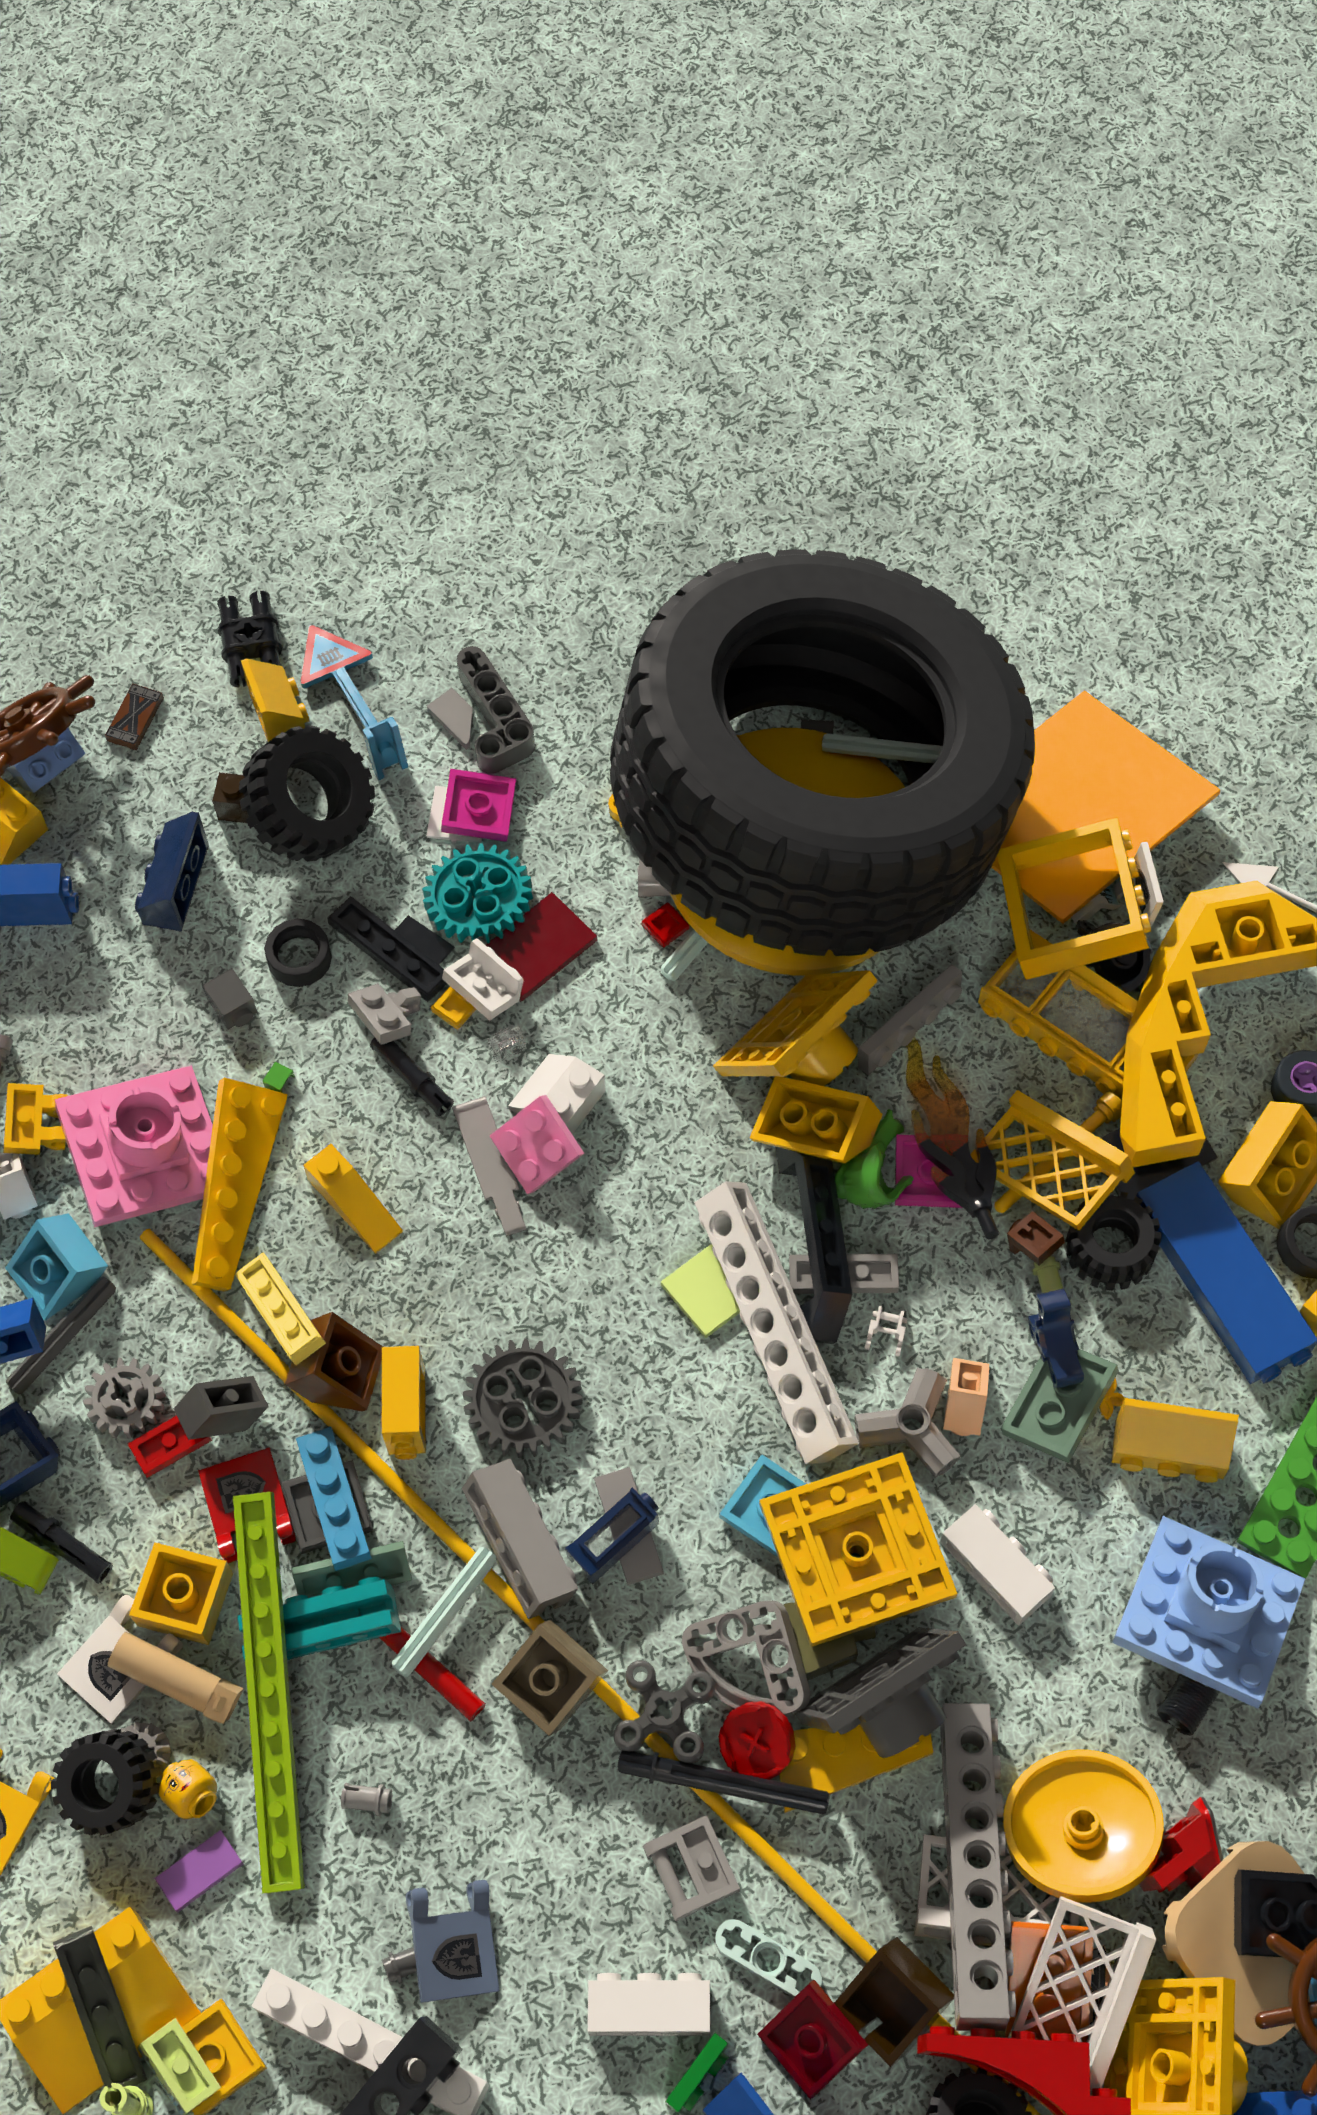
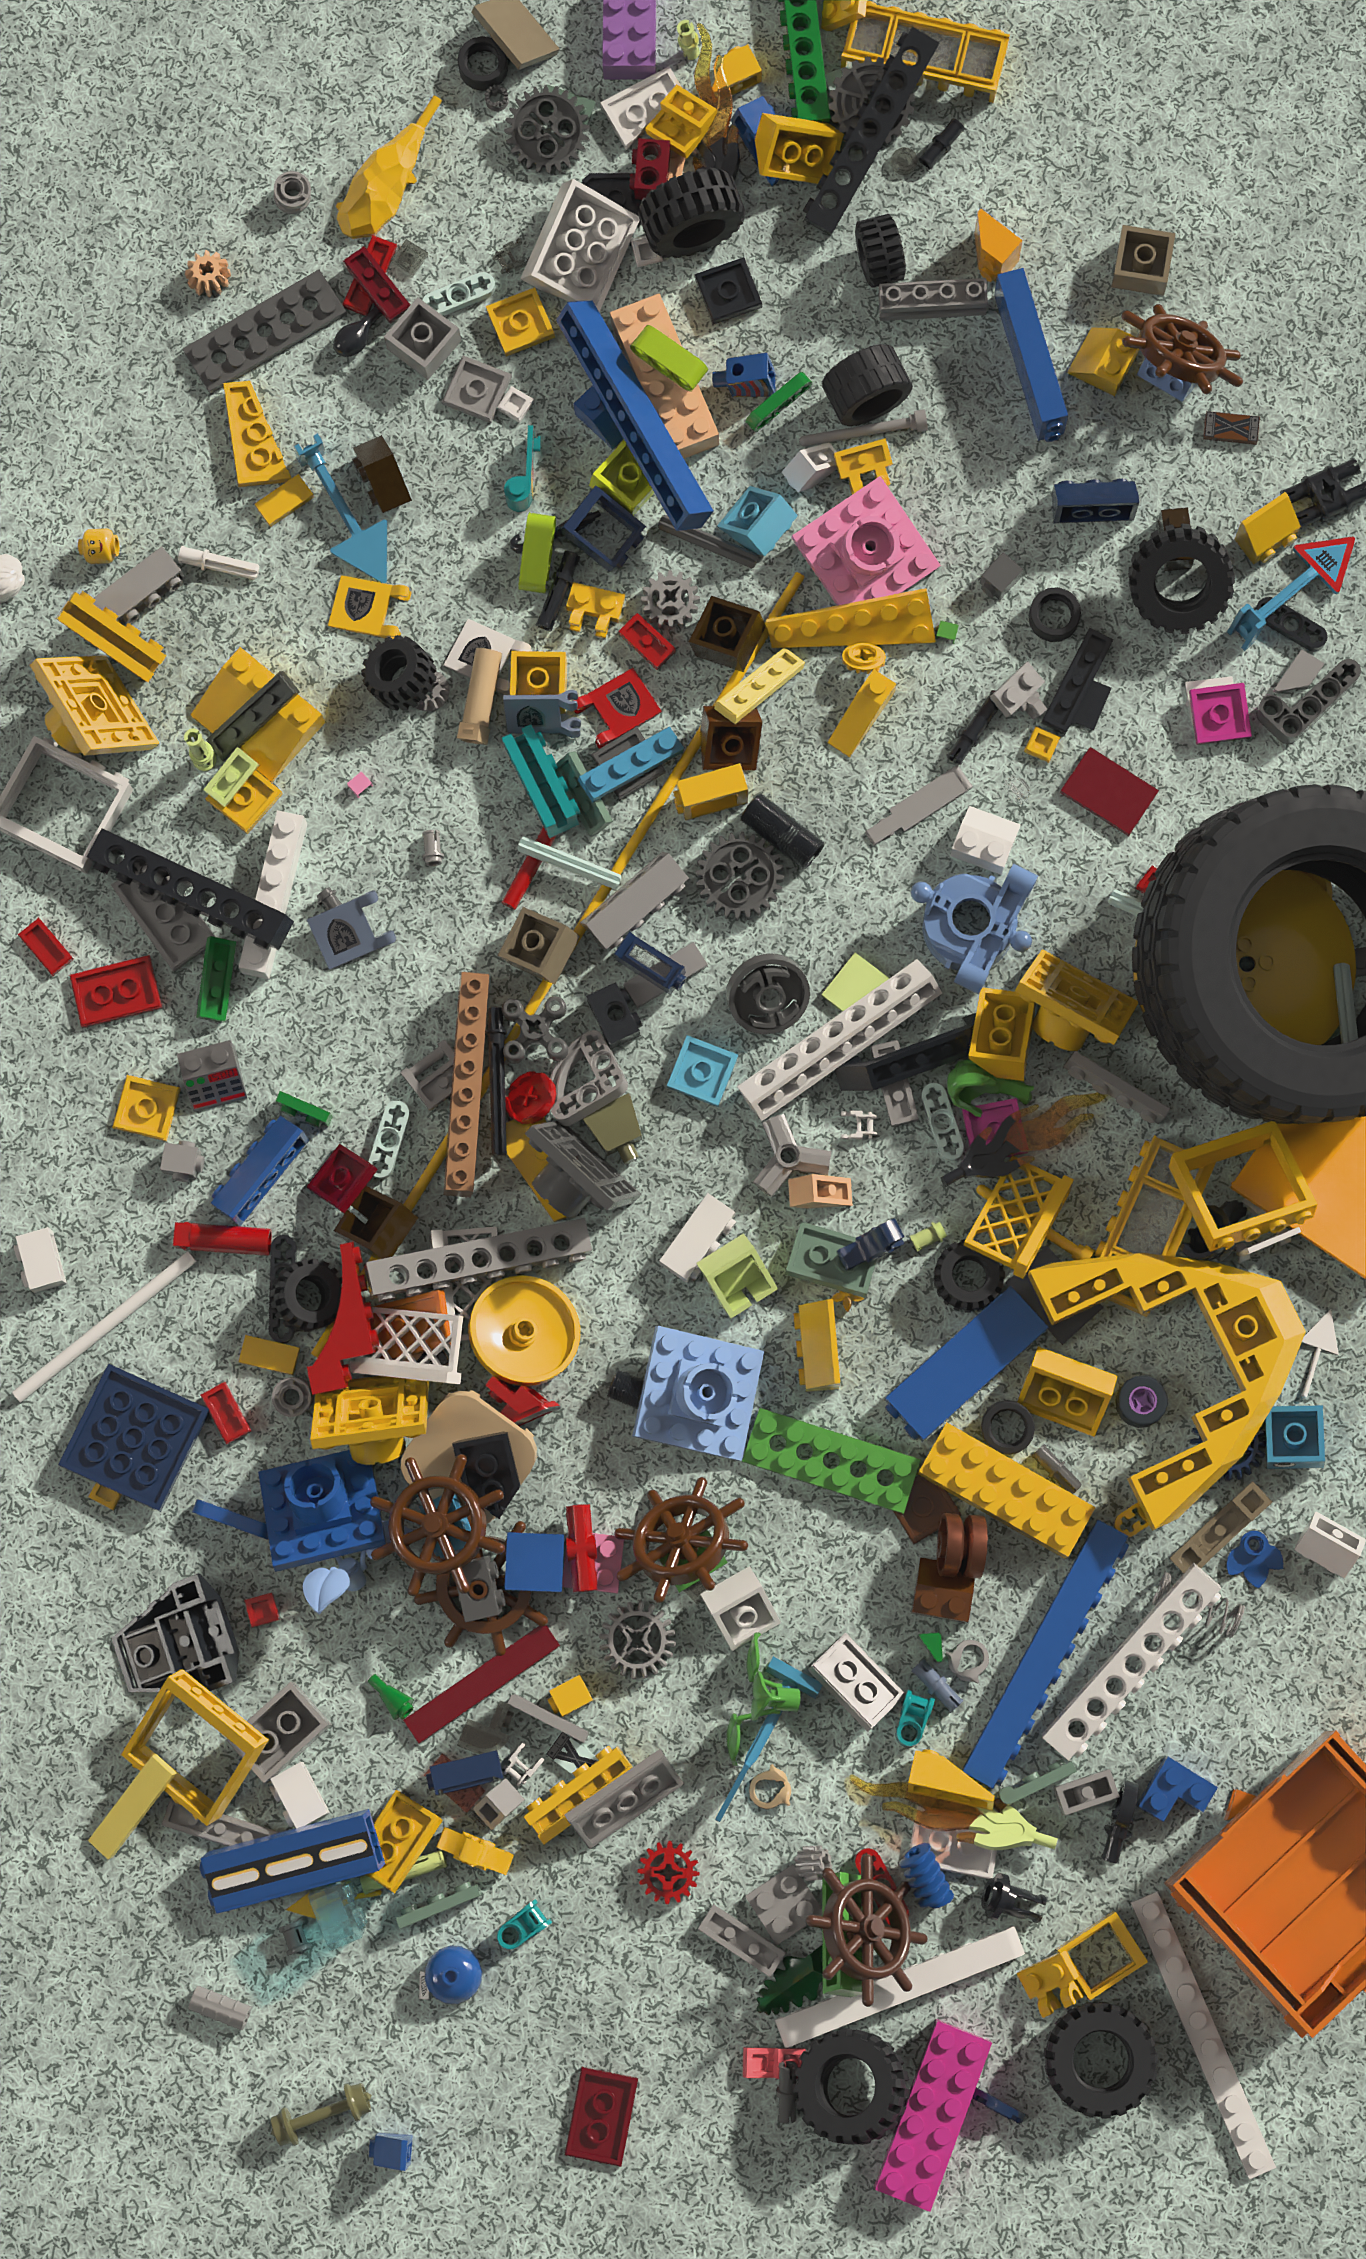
camera: 80 degrees right, 15 degrees up
(93, 1498) = (596, 603): none -> yellow plate
(188, 1789) = (409, 728): yellow head -> none
(196, 1333) = (727, 633): none -> dark brown brick
(198, 1871) = (360, 753): medium lavender tile -> none
(220, 1407) = (675, 667): dark grey brick -> none
(221, 1602) = (541, 713): none -> sand blue flag
(244, 1882) = (359, 783): none -> bright pink piece
(268, 1693) = (484, 758): lime plate -> none
(275, 1174) = (873, 656): none -> yellow gear
(394, 698) = (1312, 627): none -> black beam
(470, 1336) = (771, 822): none -> black piece
(485, 980) = (1063, 758): white bracket -> none
(504, 900) = (1141, 711): teal gear -> none
(536, 1144) = (936, 833): bright pink plate -> none
(649, 2005) = (339, 1067): white brick -> none
(654, 1619) = (605, 1001): none -> black brick
(675, 1405) = (745, 993): none -> dark grey piece
(689, 1160) = (975, 953): none -> medium blue piece
(721, 1823) = (466, 1084): none -> medium nougat brick
(866, 1513) = (682, 1104): yellow piece -> none
(932, 1237) = (942, 1100): none -> light aqua beam
(1034, 1238) = (954, 1216): reddish brown bracket -> none
(1047, 1518) = (731, 1270): none -> yellowish green piece

